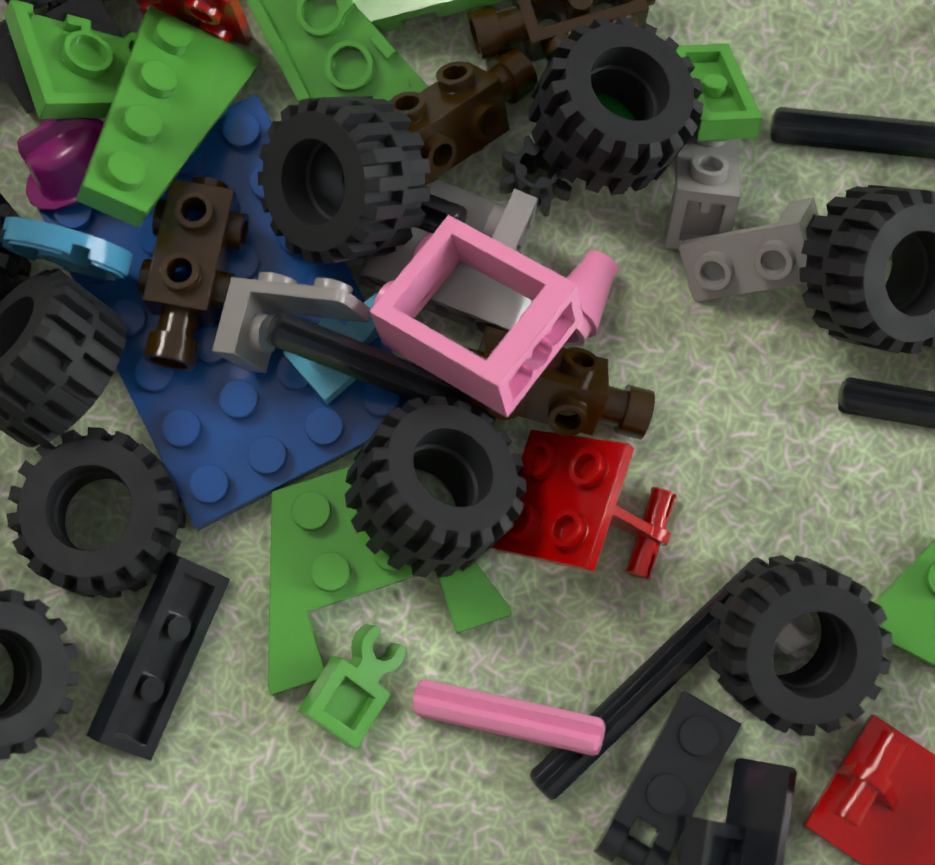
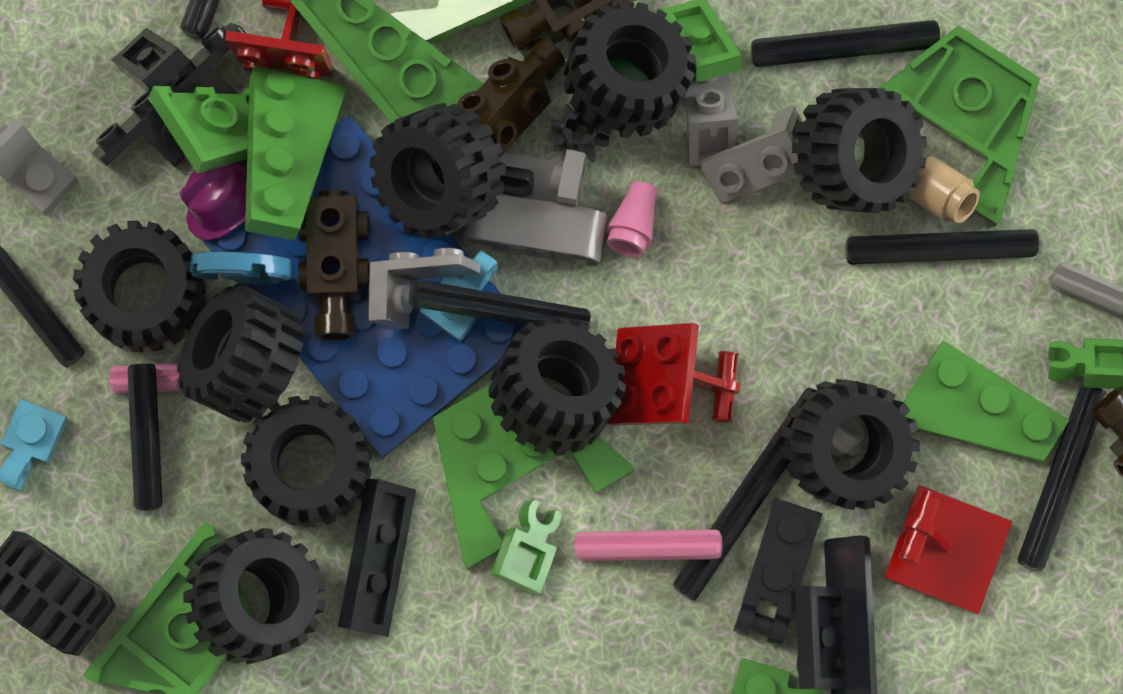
camera: 10 degrees left, 0 degrees up
(525, 349) = (602, 272): bright pink window -> none
(576, 383) = (624, 288): dark brown brick -> none

